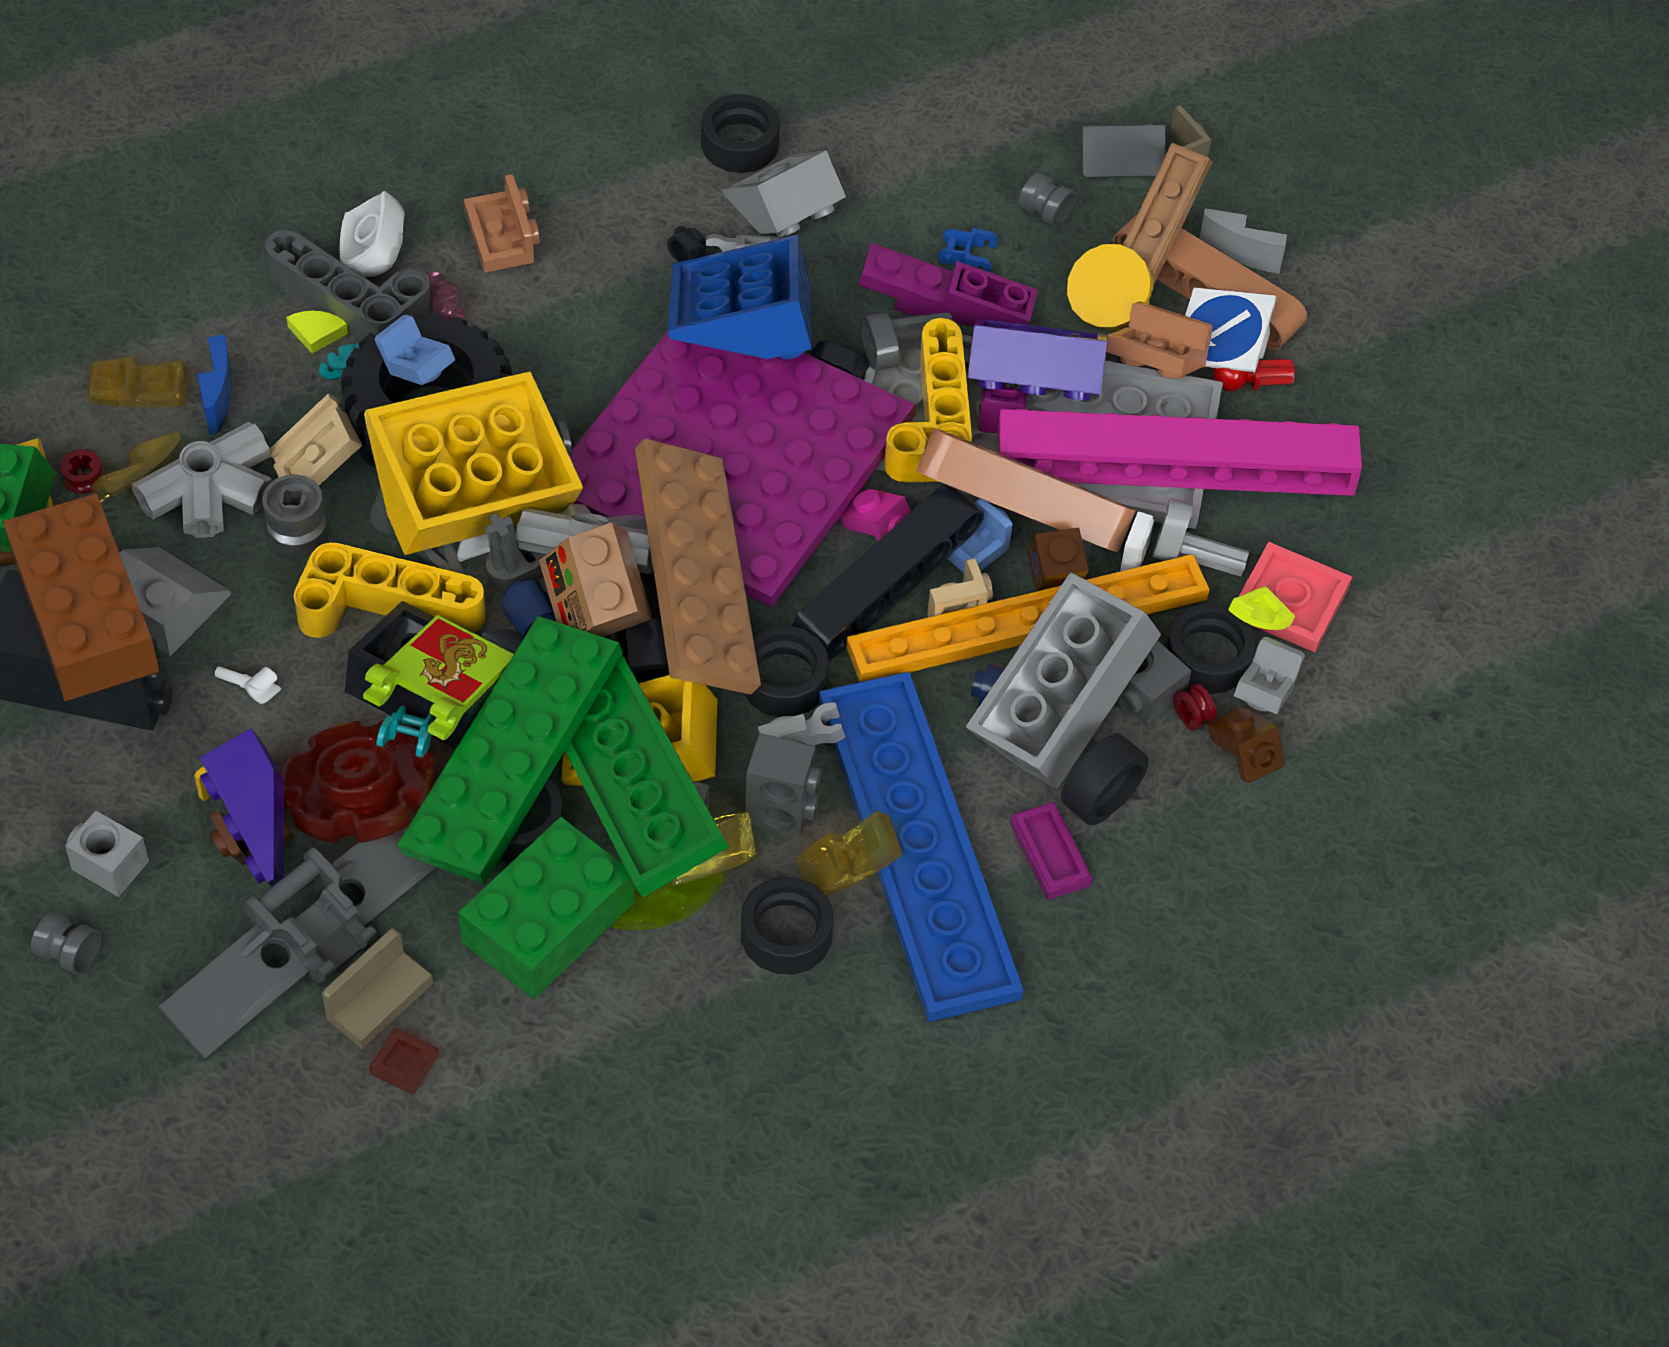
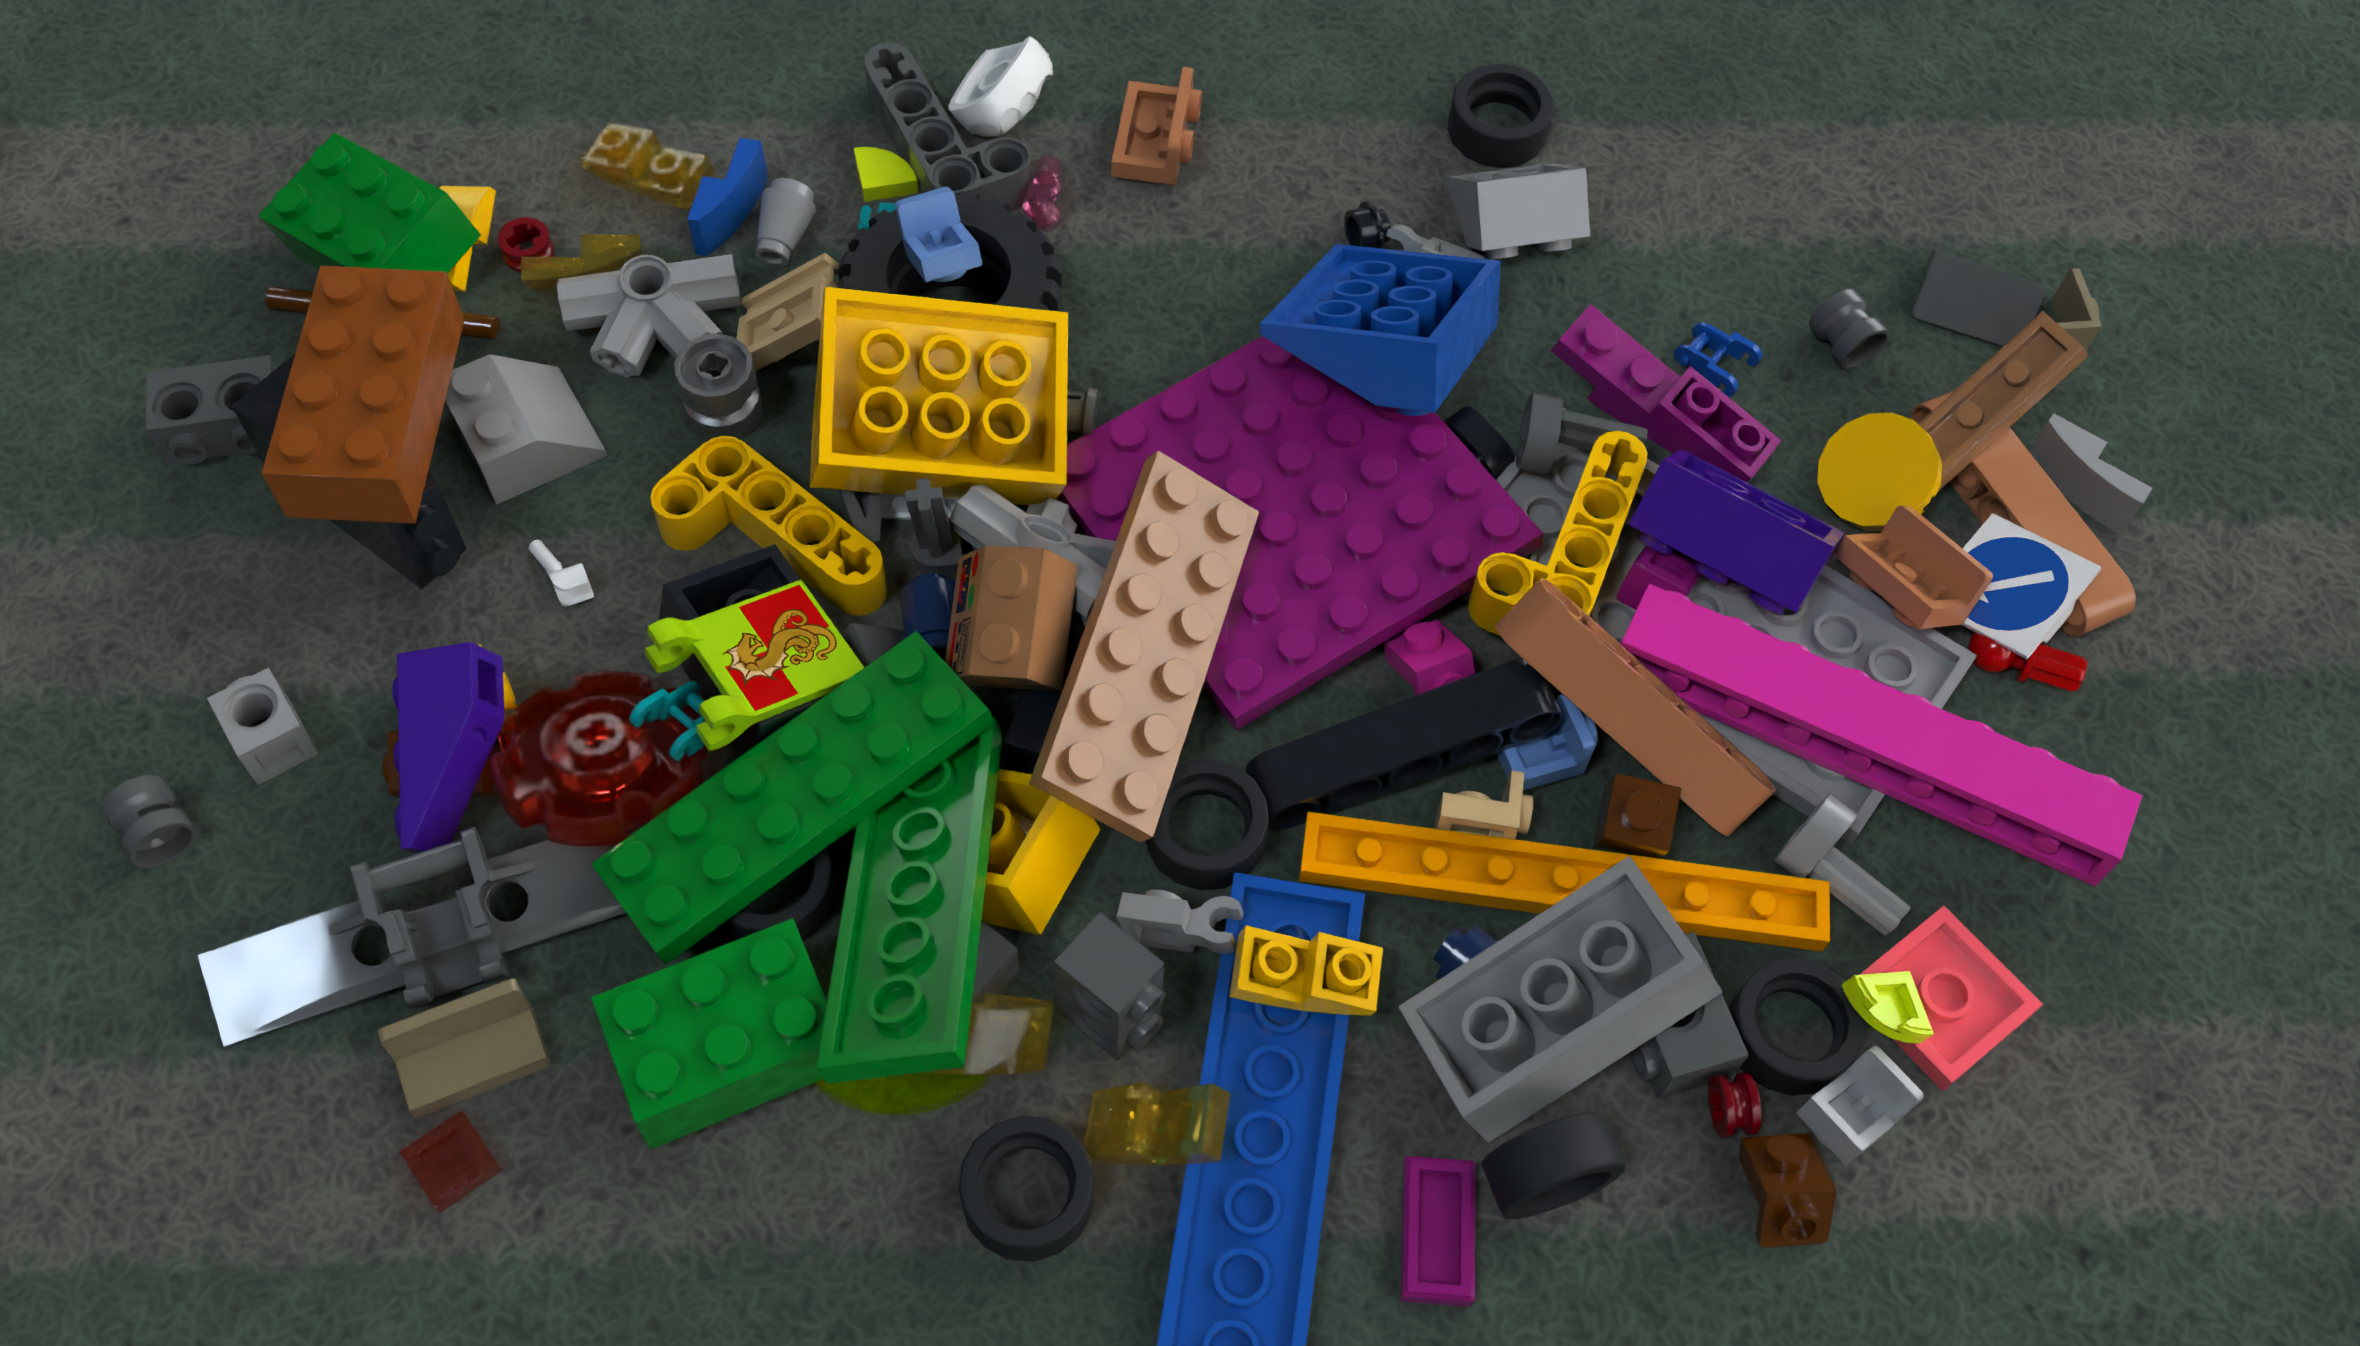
camera: 25 degrees right, 5 degrees up
(265, 385) = (783, 219): none -> light grey cone
(906, 729) = (1306, 975): none -> yellow slope
(1137, 541) = (1759, 834): white tile -> none

